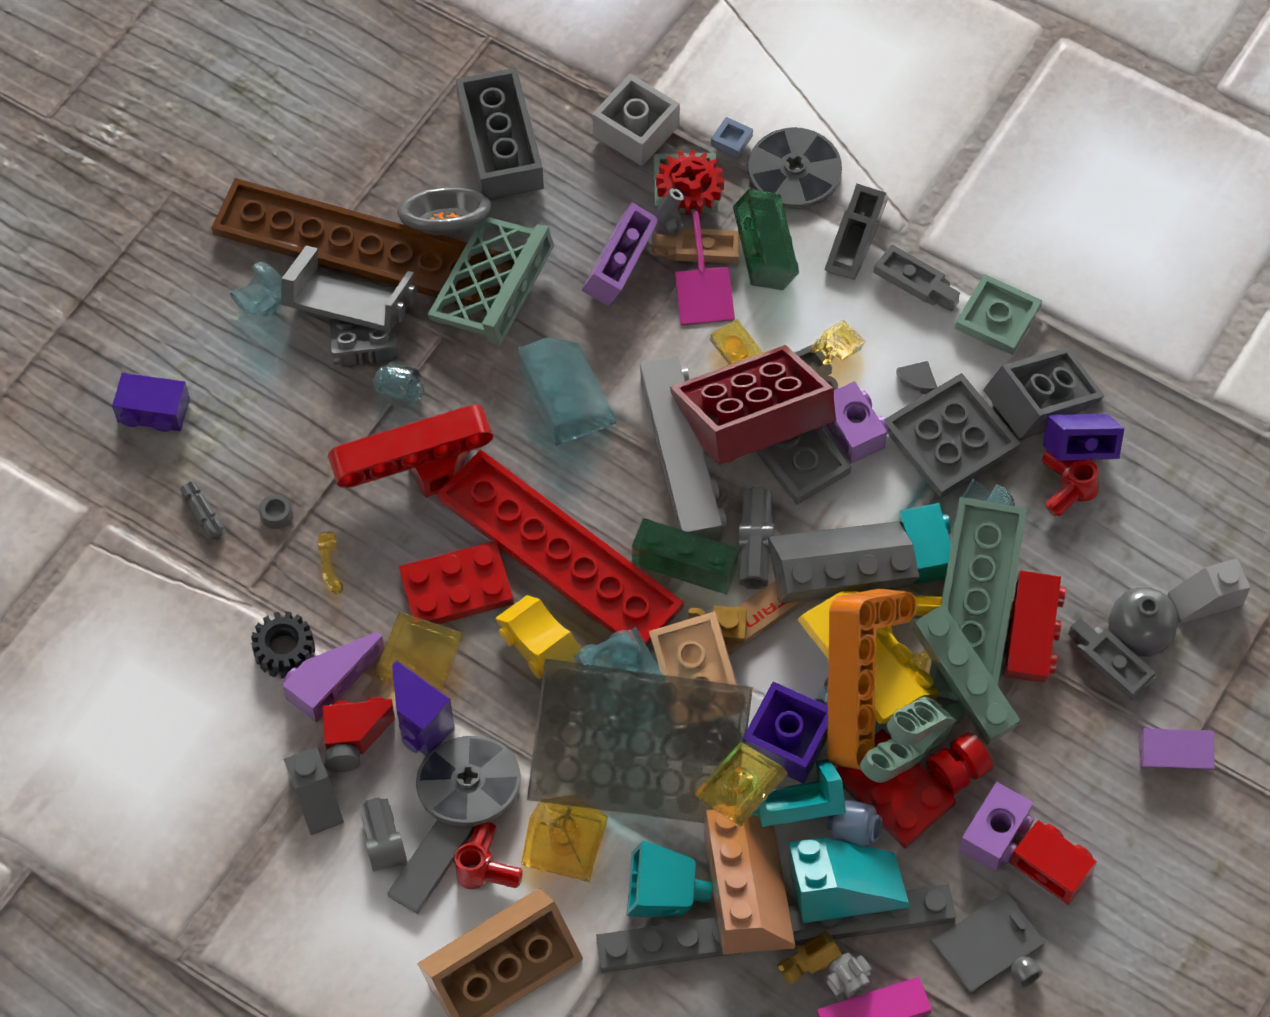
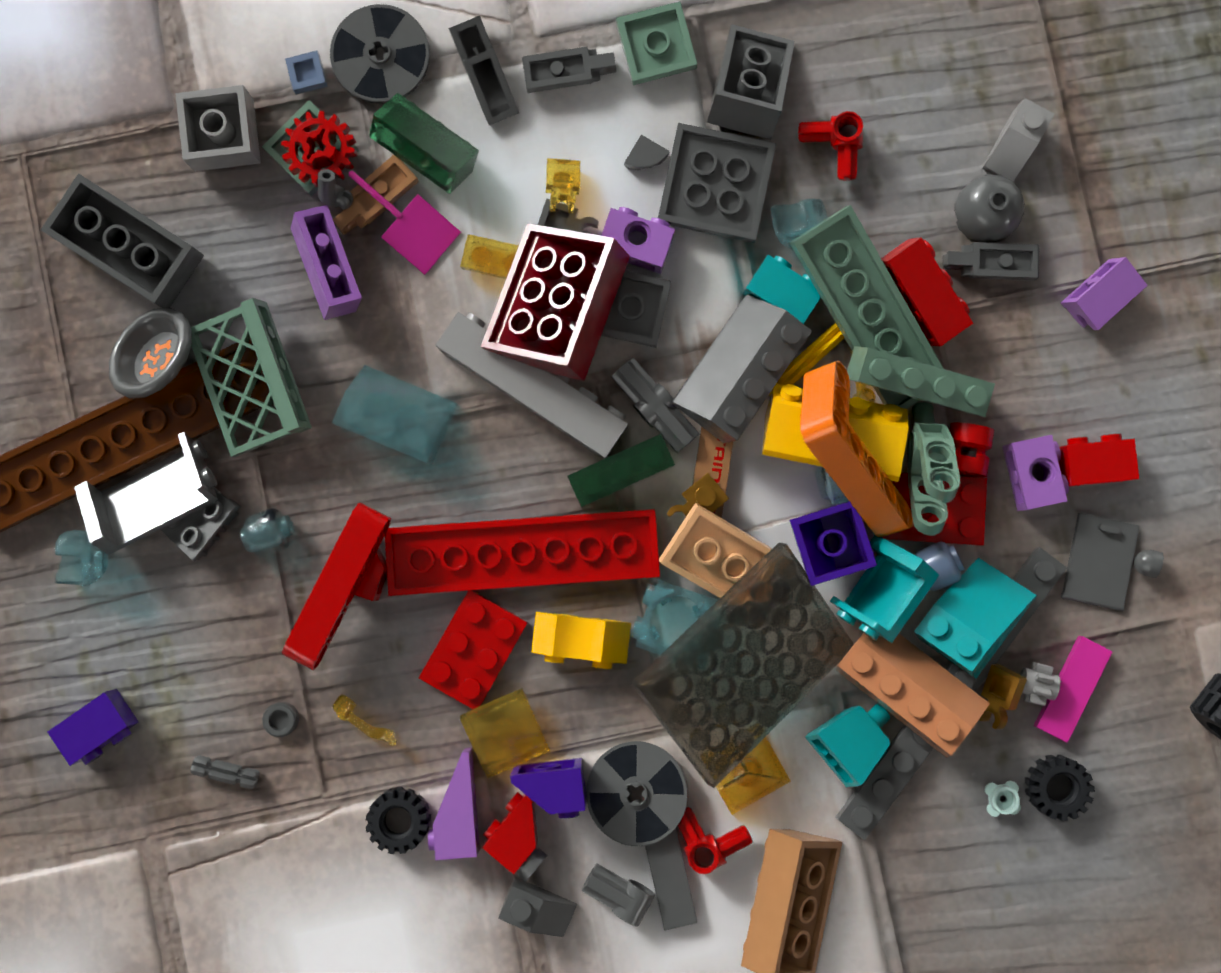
camera: 45 degrees left, 25 degrees up
(740, 783) = (852, 629): clear yellow tile -> none
(1083, 437) = (822, 96): dark purple brick -> none

